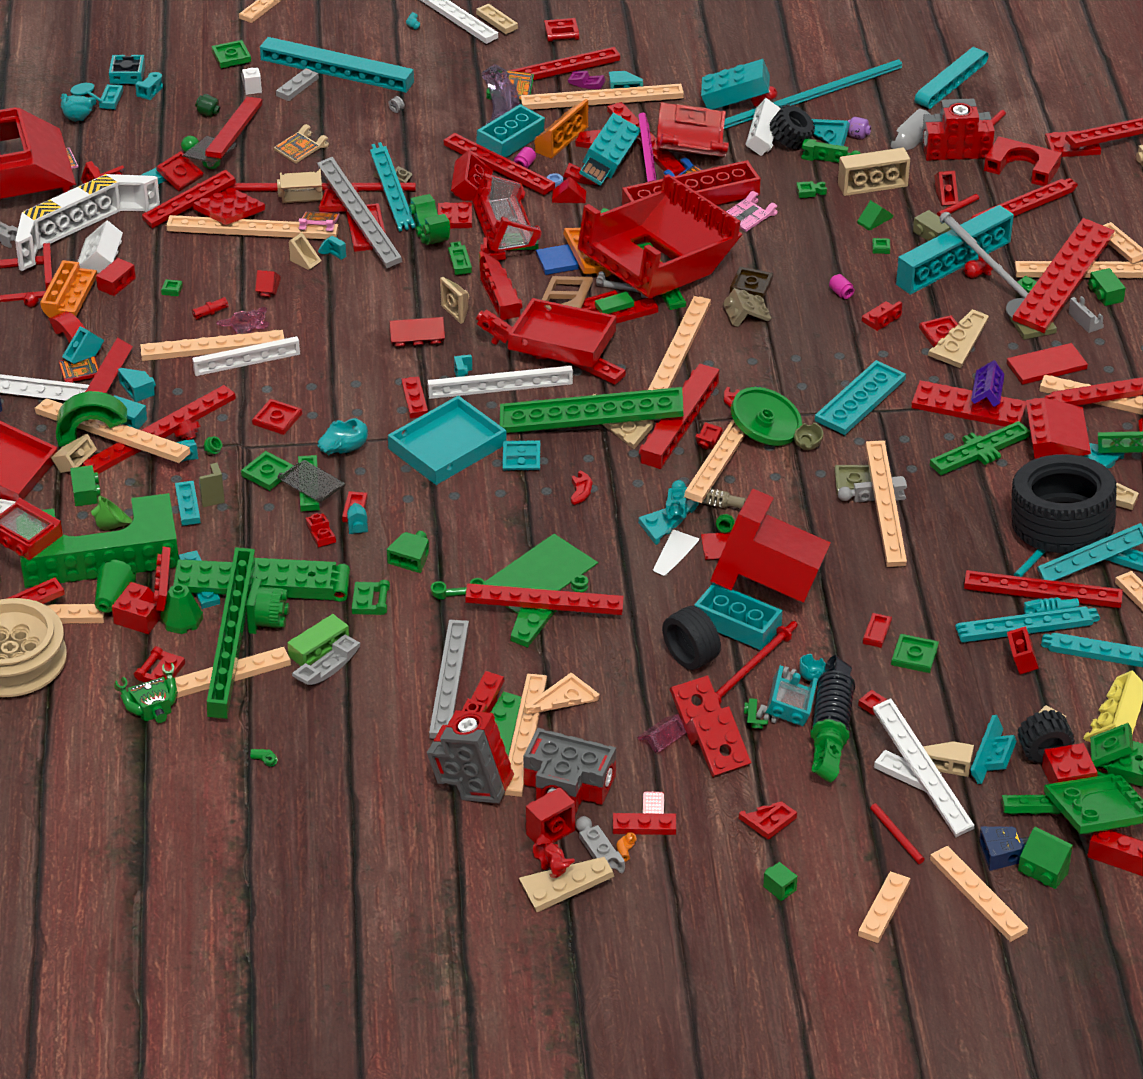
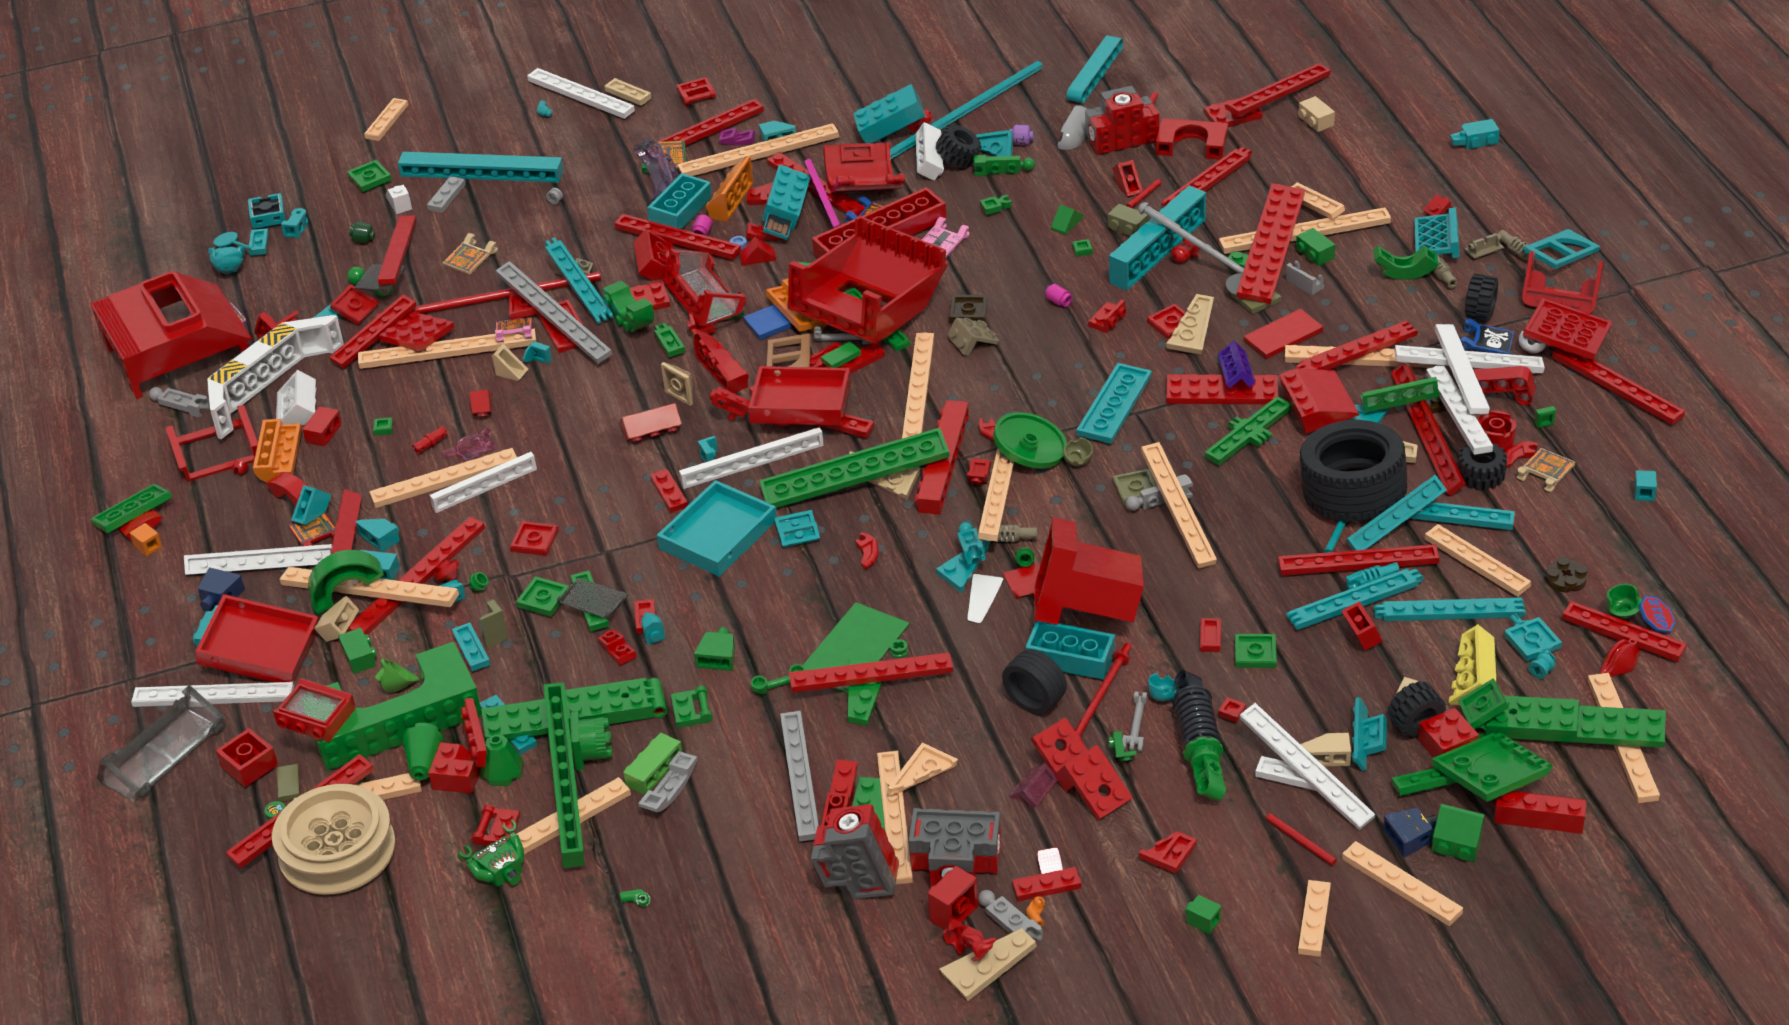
camera: 10 degrees left, 0 degrees up
(300, 187) = (485, 298): tan window -> none
(343, 437) = (611, 546): teal piece -> none
(790, 699) = (1150, 723): teal window -> none
(873, 171) = (1052, 175): tan brick -> none

